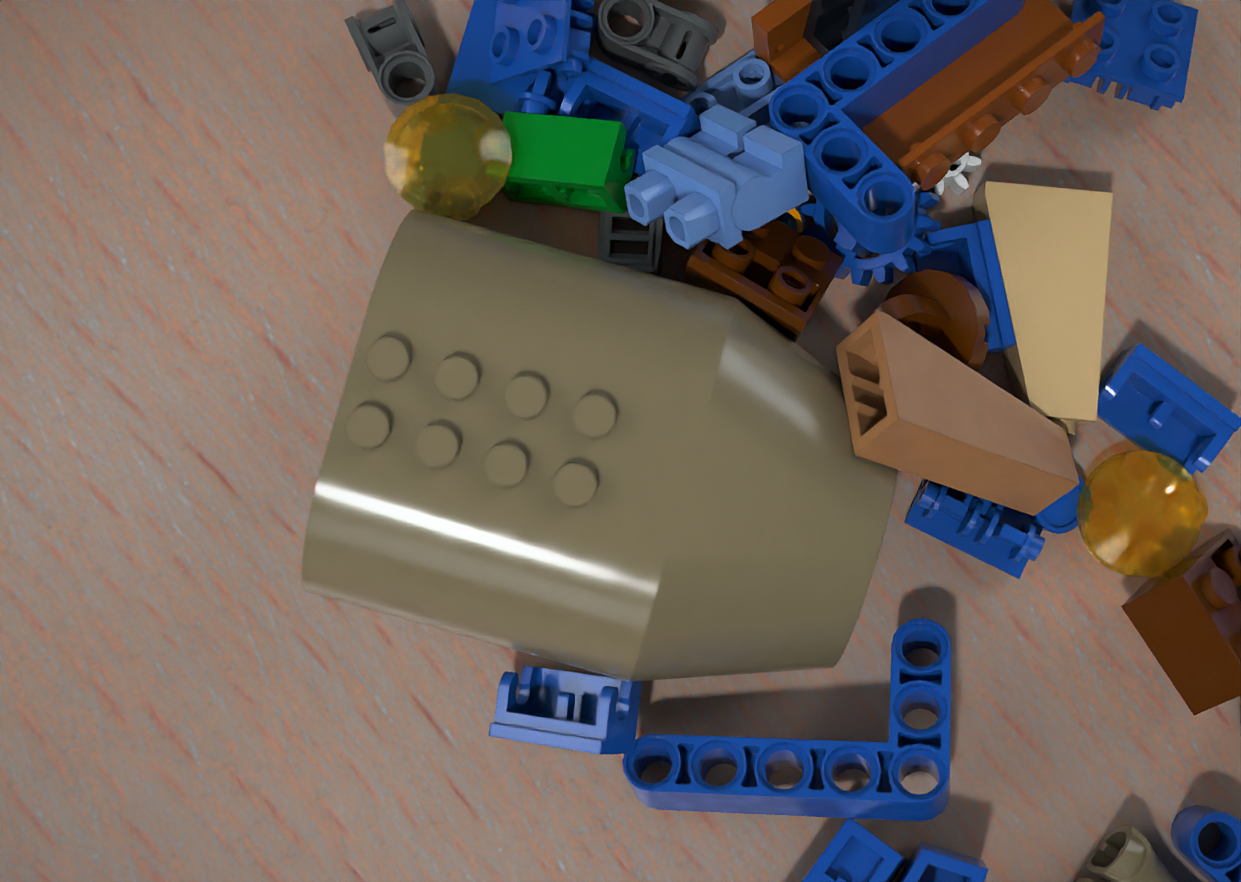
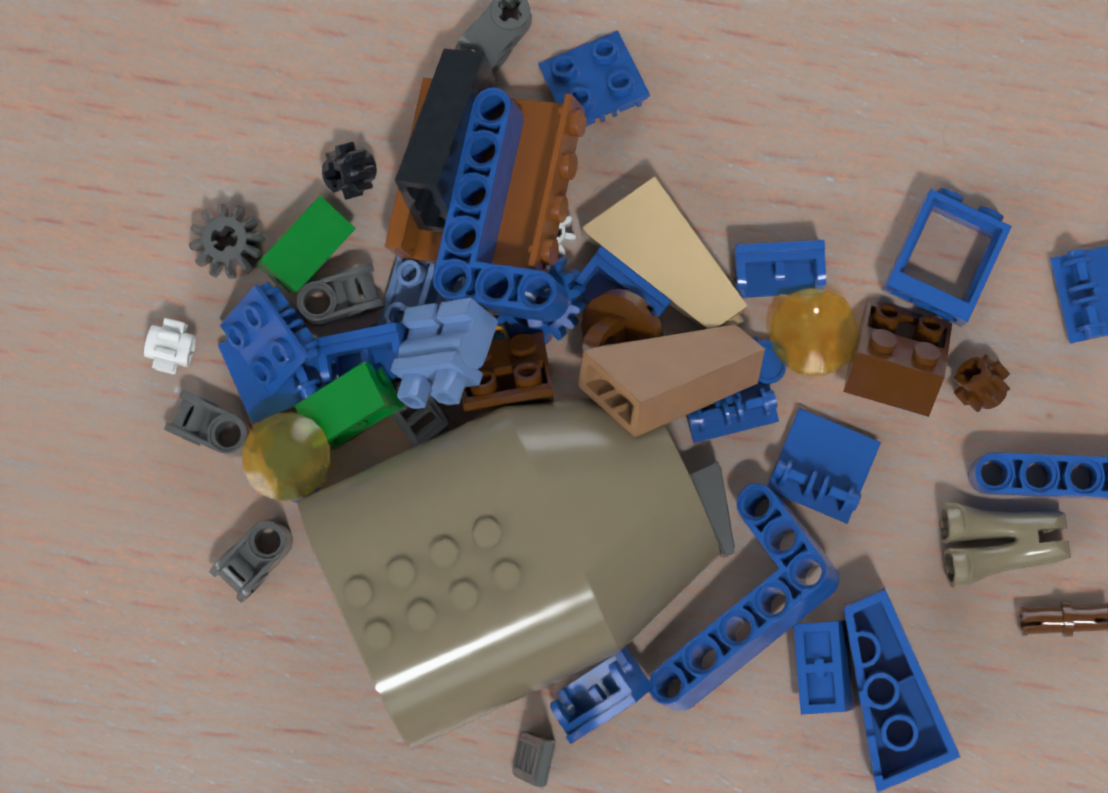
camera: 35 degrees left, 0 degrees up
(309, 239) = (251, 560): none -> dark grey piece
(435, 717) = (533, 758): none -> dark grey slope
(884, 592) = (712, 493): none -> dark grey slope
(1027, 669) = (823, 466): none -> blue hinge

